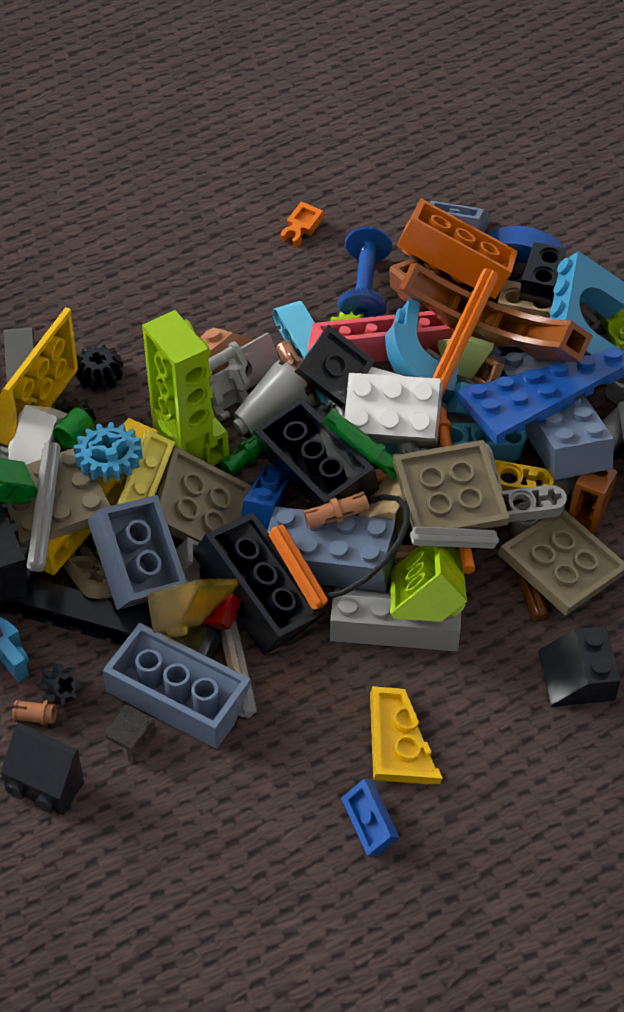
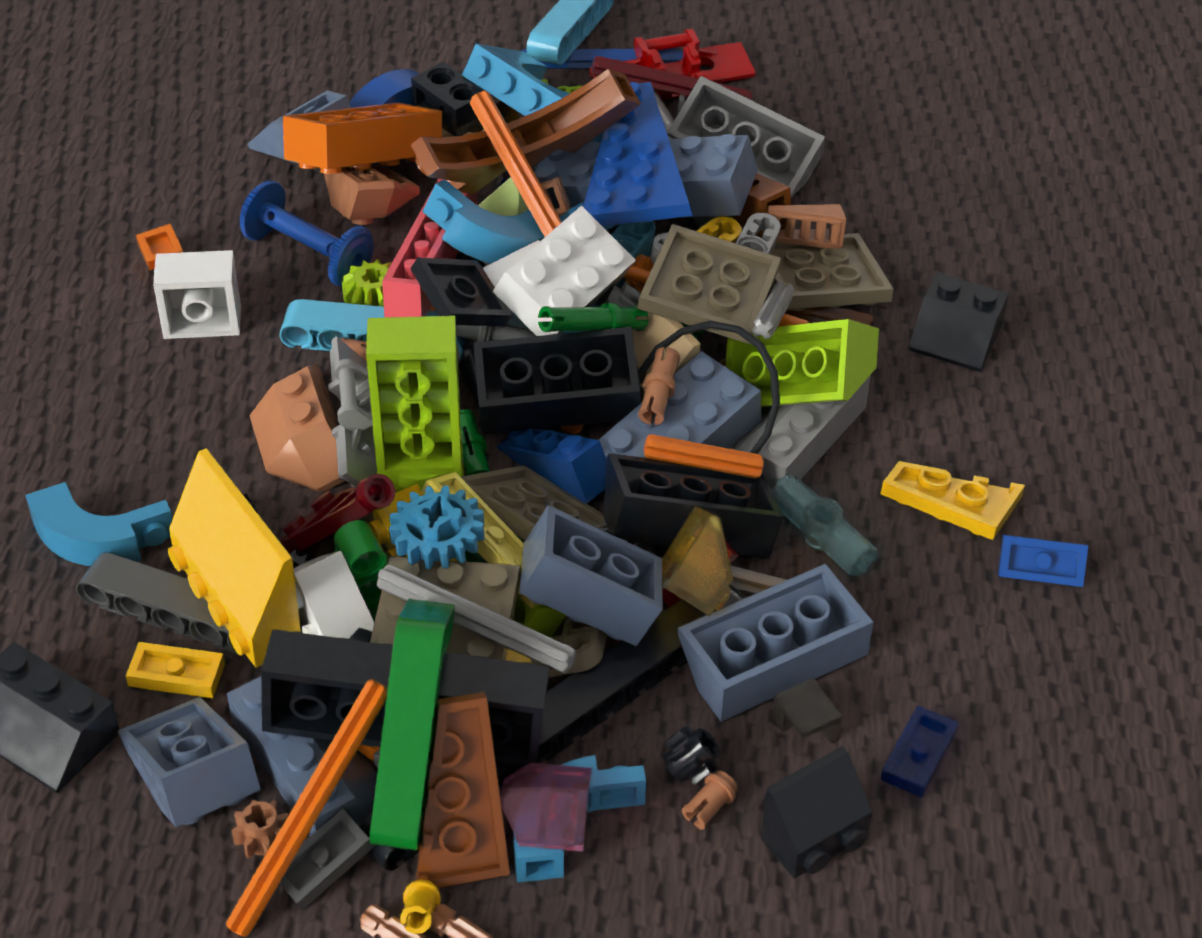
camera: 60 degrees left, 5 degrees down
(47, 300) = (84, 536): none -> dark azure arch
(112, 407) = (337, 510): none -> dark red plate
(144, 812) = (919, 751): none -> clear blue plate
(265, 254) = (197, 294): none -> white brick
(302, 683) = (824, 525): none -> clear light blue piece
(592, 527) = (818, 237): none -> nougat slope

